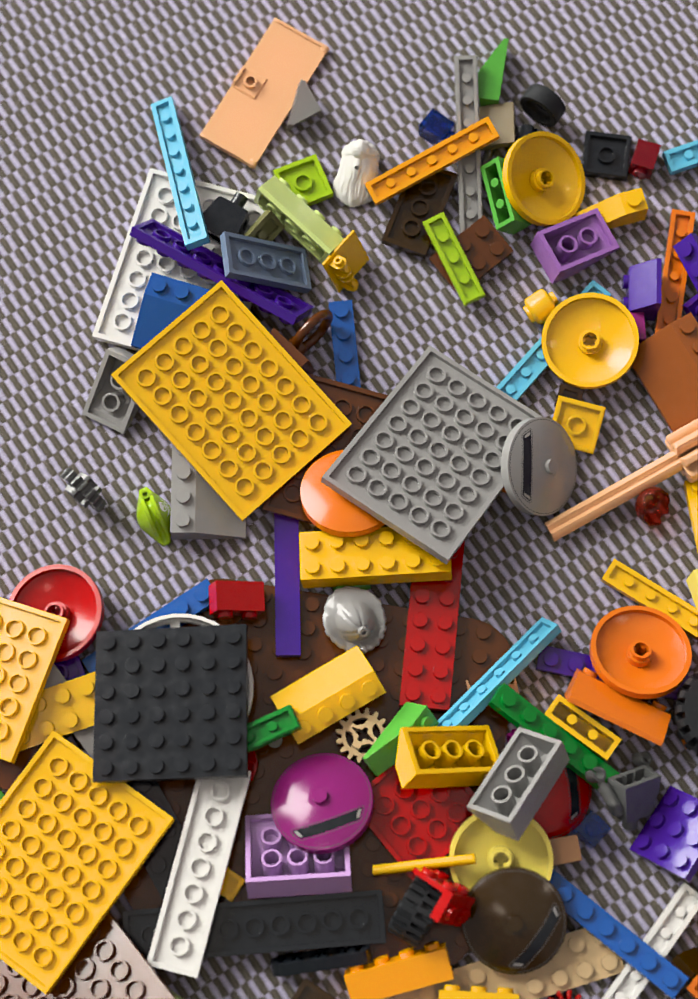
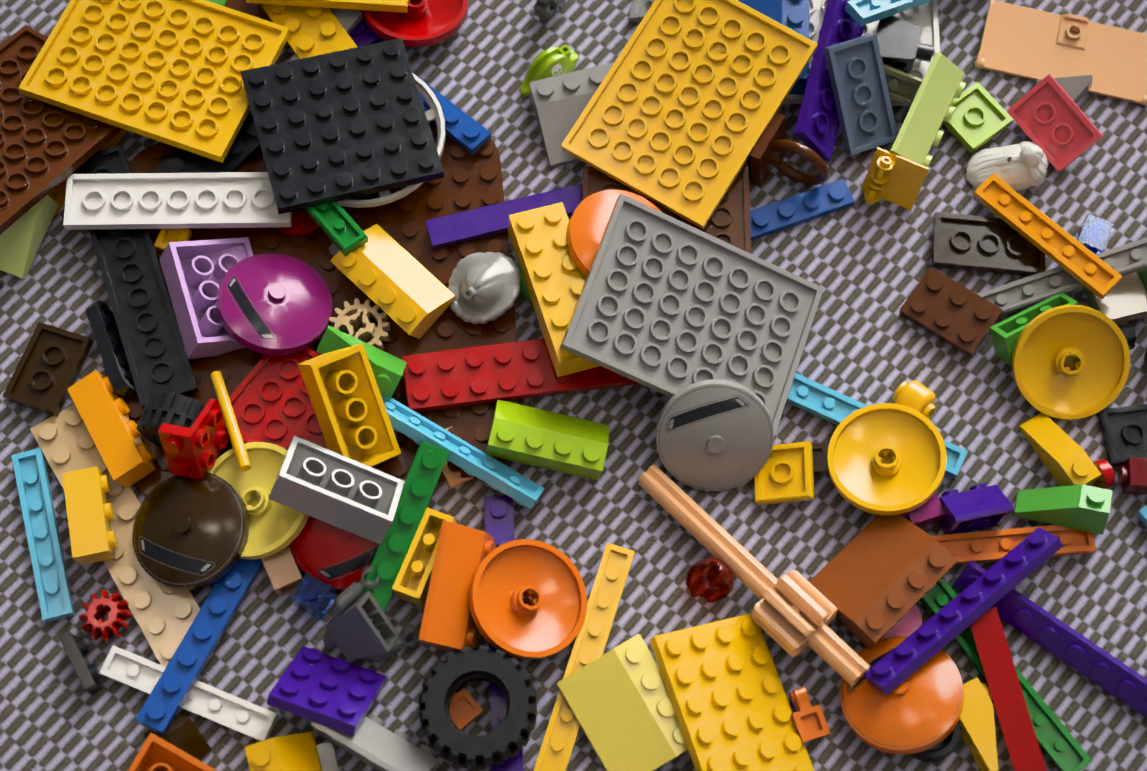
camera: 70 degrees right, 5 degrees down
(236, 599) = (473, 163): red brick -> none
(331, 123) = (1054, 123): none -> coral plate
(454, 259) = (936, 289): lime tile -> none
(500, 601) = (548, 440): none -> lime slope
(573, 245) = (1003, 418): medium lavender slope -> none
(635, 184) = (1107, 475): none -> red tile
(658, 221) = (1067, 506): none -> bright green slope

